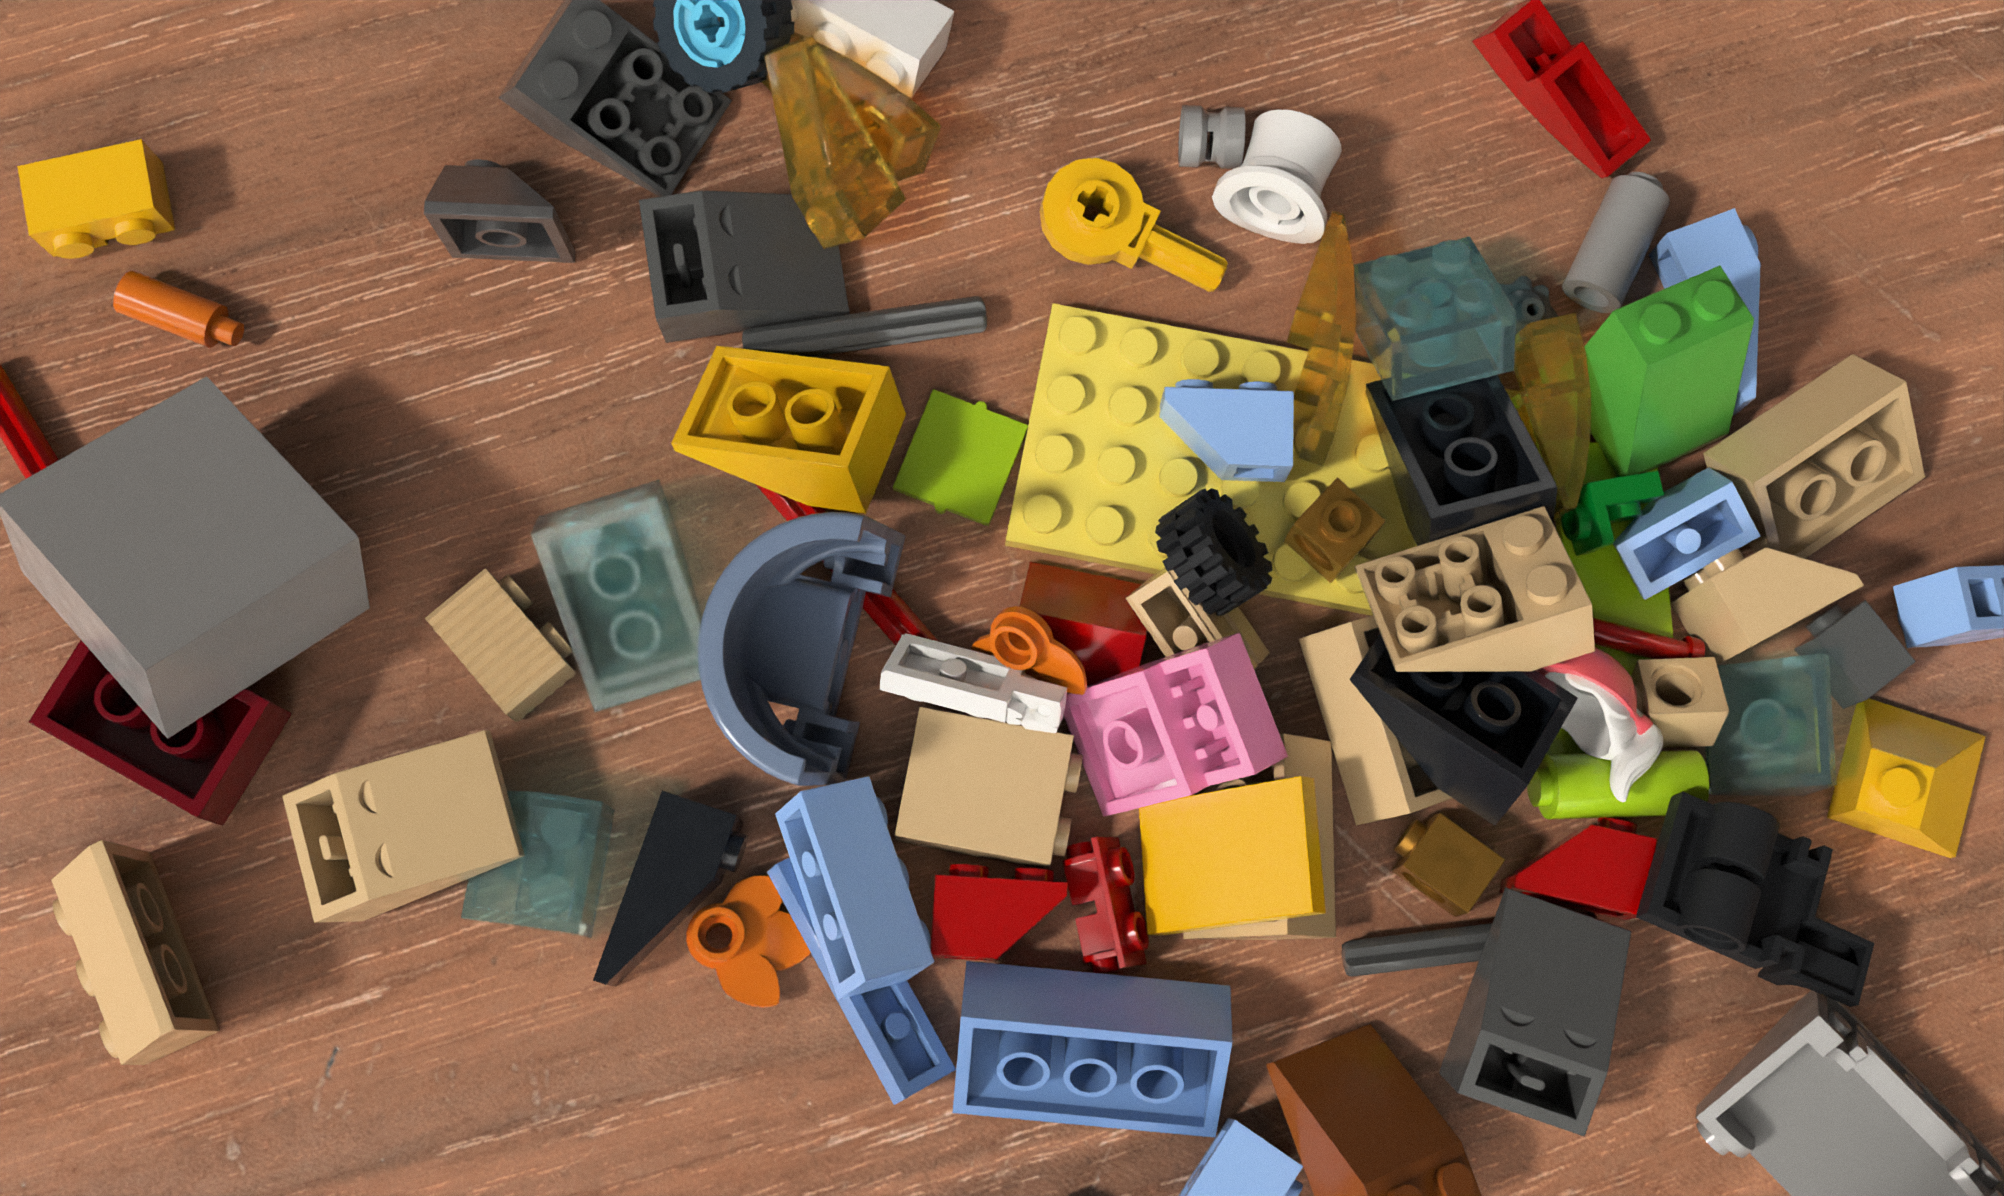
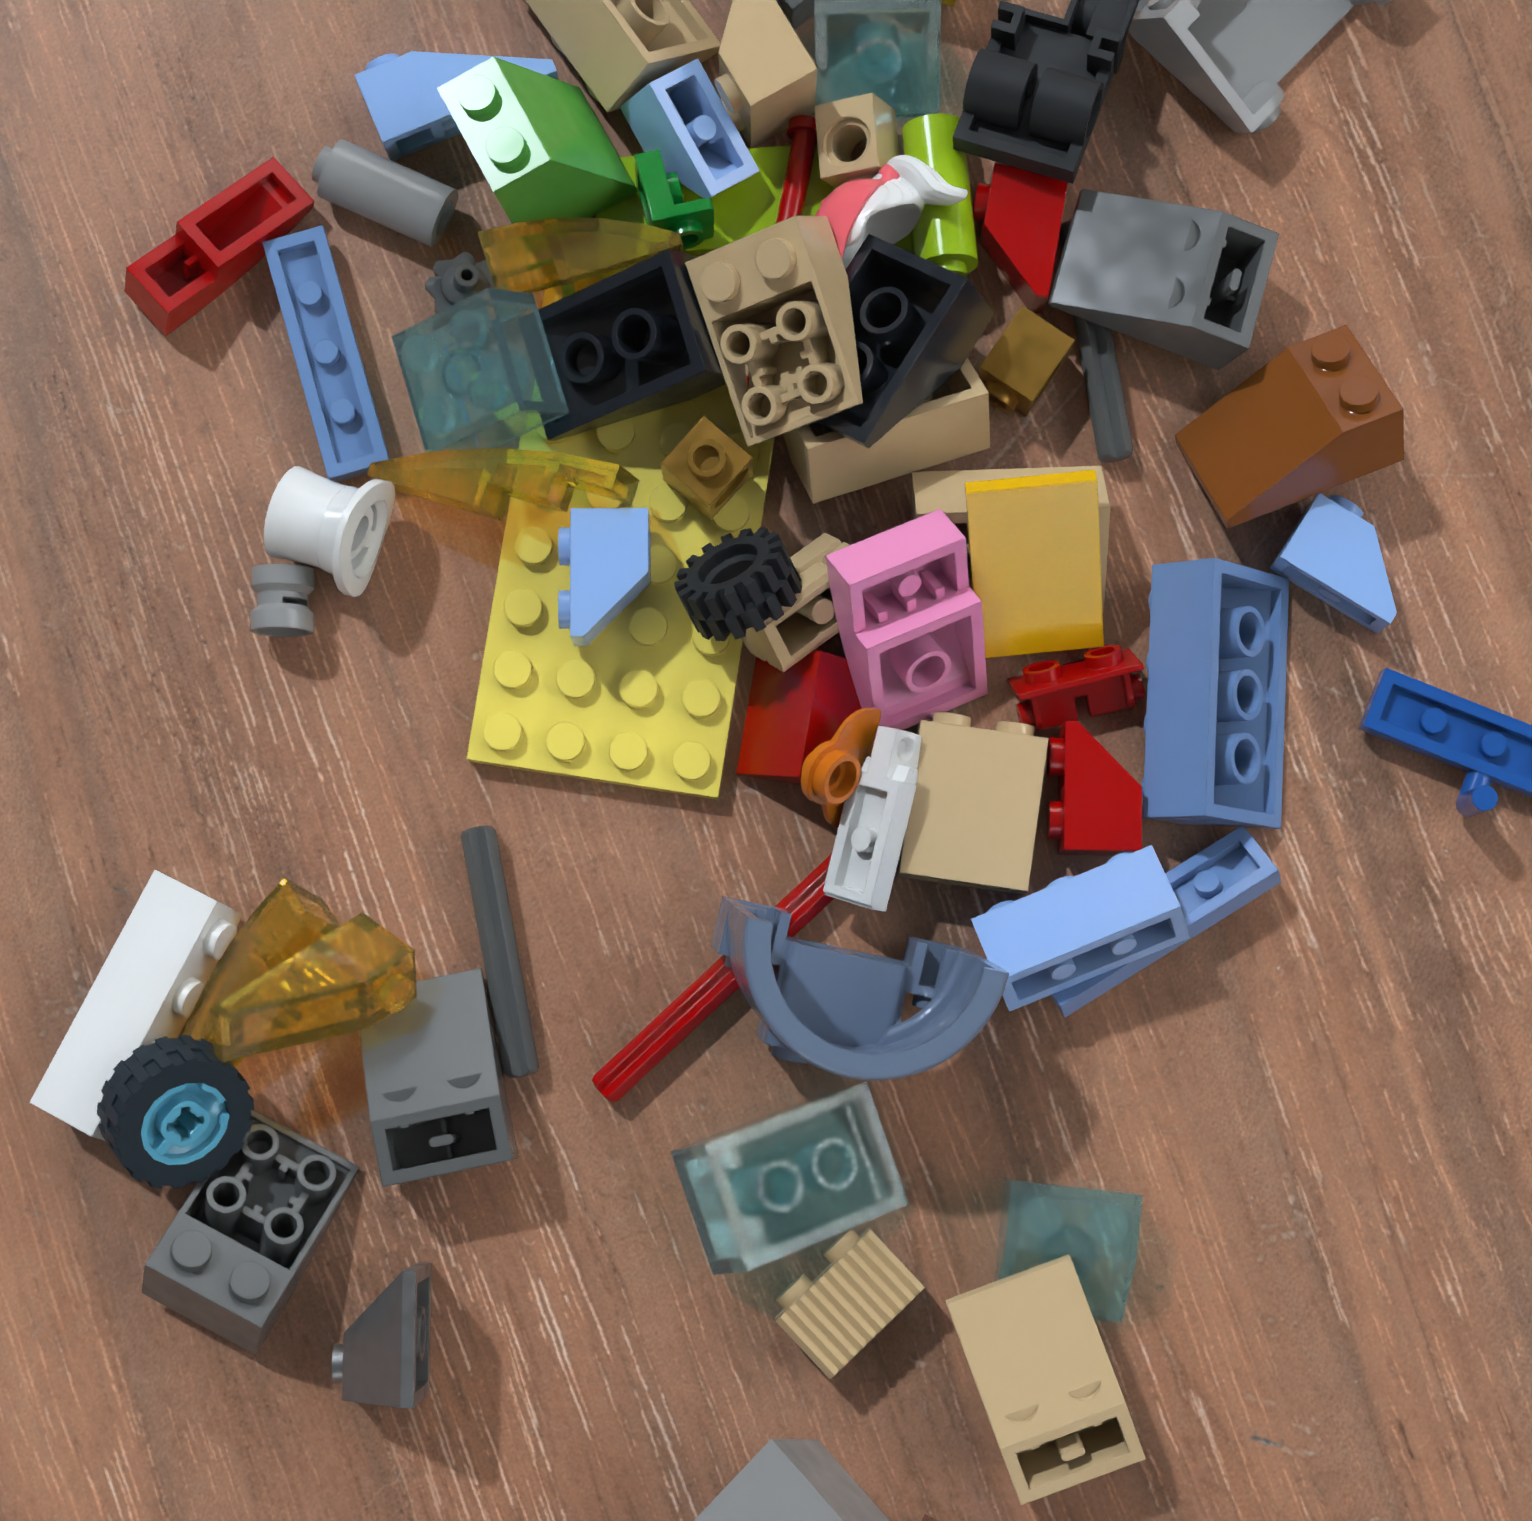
camera: 90 degrees left, 5 degrees up
(674, 873) = (1068, 1107): black slope -> none
(760, 944) = (1132, 1023): orange plate -> none
(795, 424) = (611, 1016): yellow slope -> none
(960, 457) = (629, 847): lime piece -> none
(1122, 227) = (382, 684): yellow piece -> none
(1455, 184) = (326, 353): none -> medium blue plate

